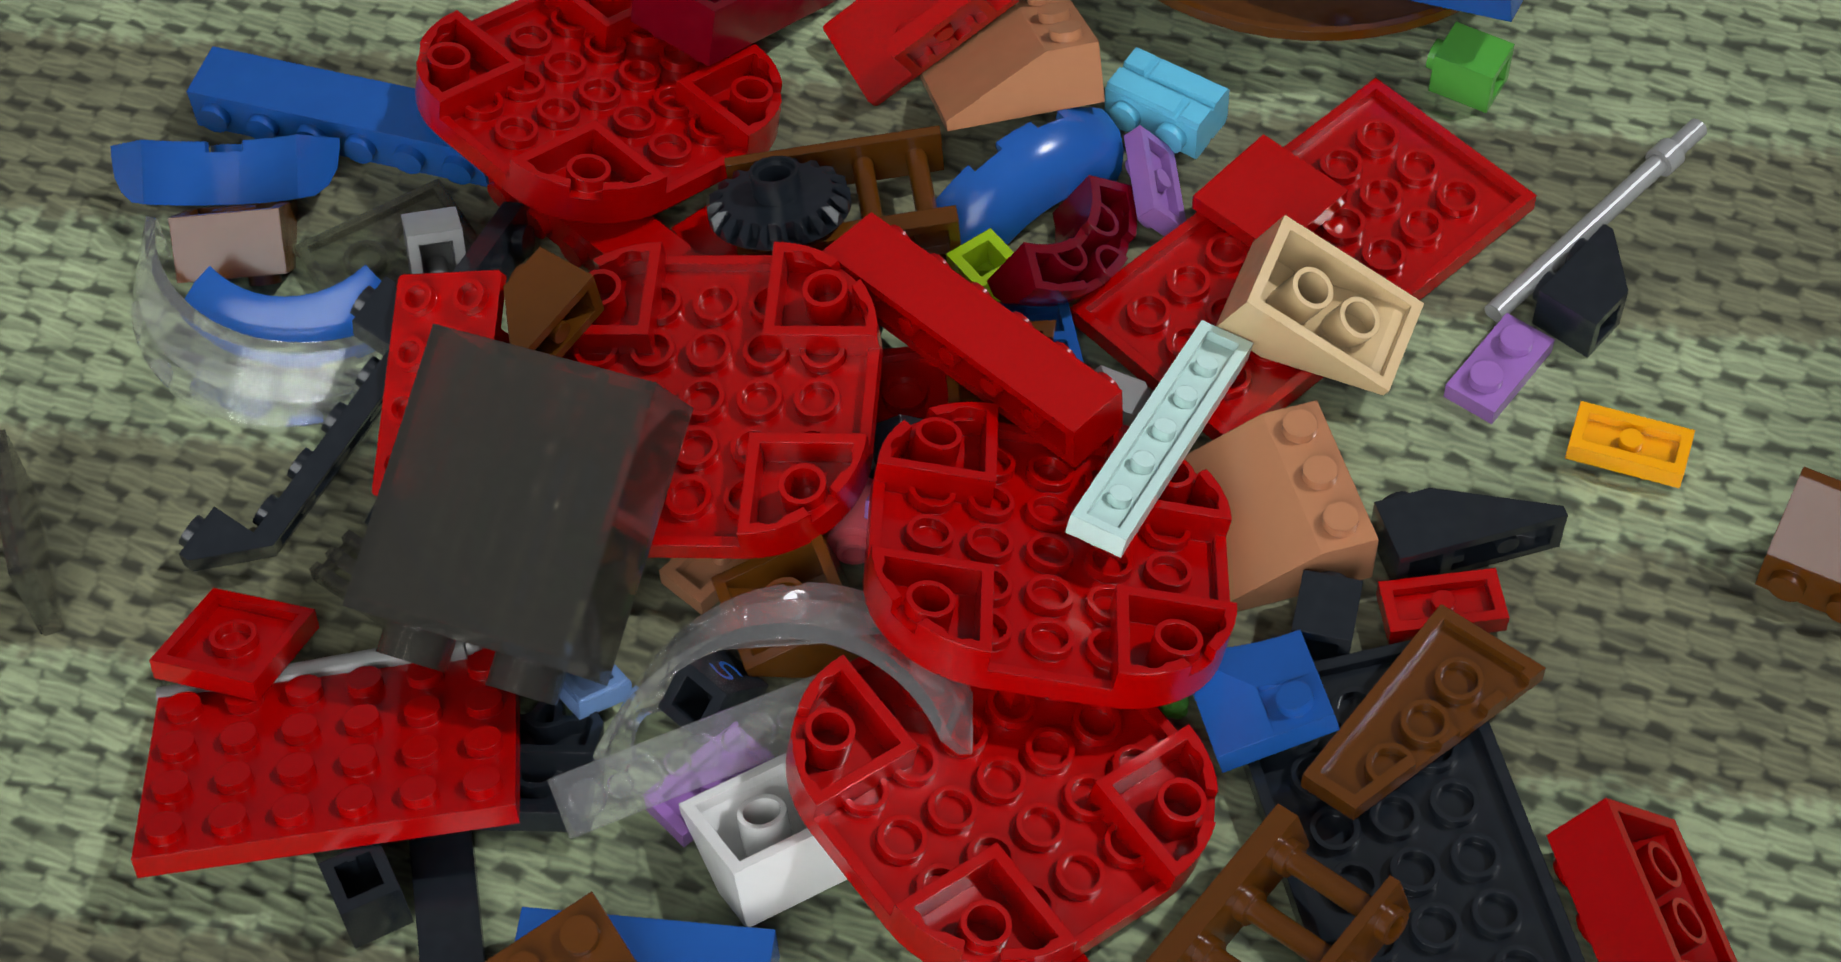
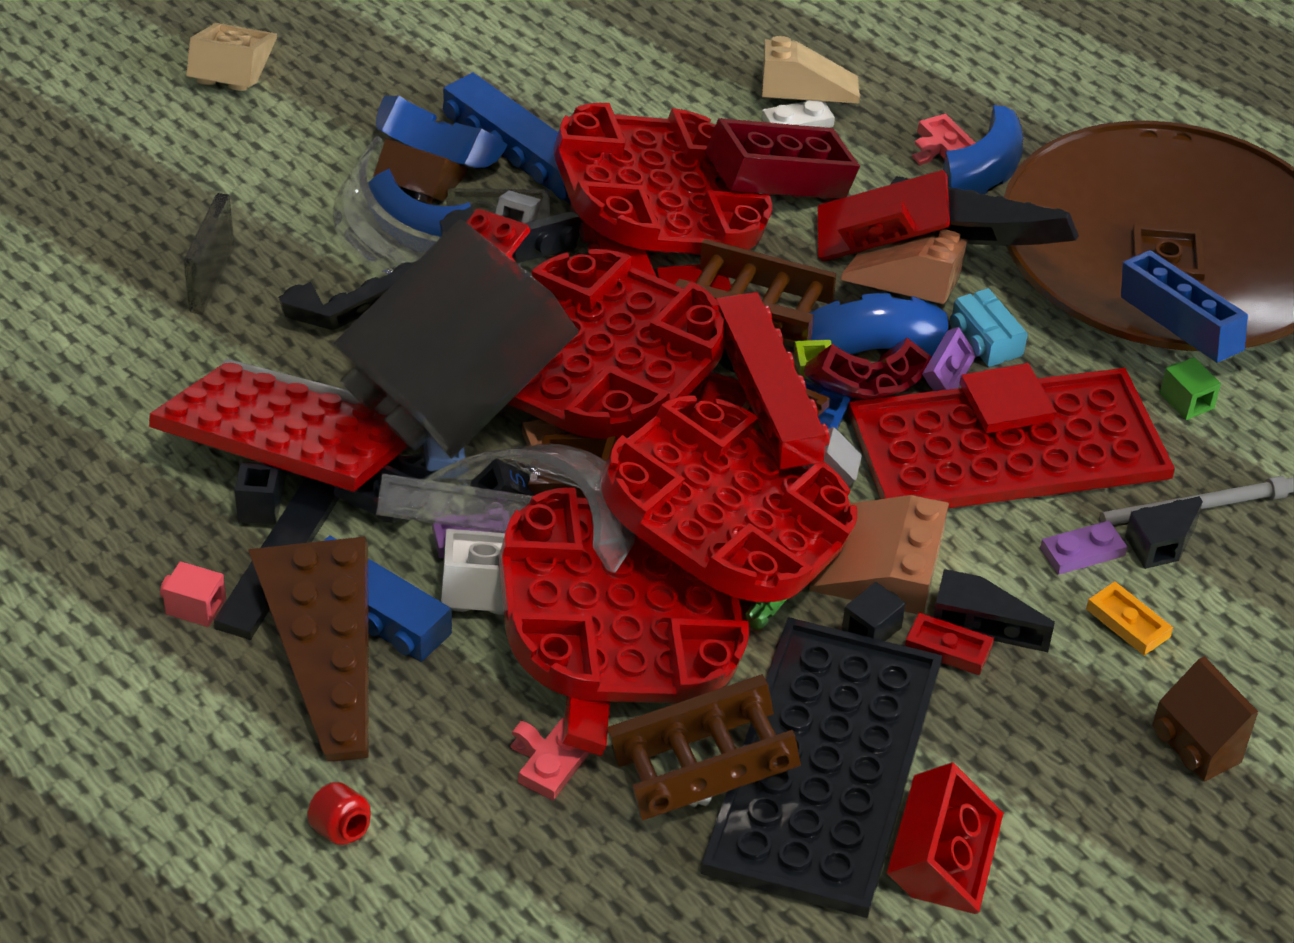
camera: 25 degrees right, 10 degrees down
(234, 644) = (278, 354): red tile -> none
(550, 303) = (545, 254): reddish brown slope -> none
(779, 203) = (715, 269): black gear -> none
(1159, 439) = (836, 473): light aqua plate -> none
(1264, 701) = (800, 630): blue plate -> none
(1320, 309) = (988, 461): tan slope -> none
(1420, 708) = (892, 676): reddish brown wing -> none

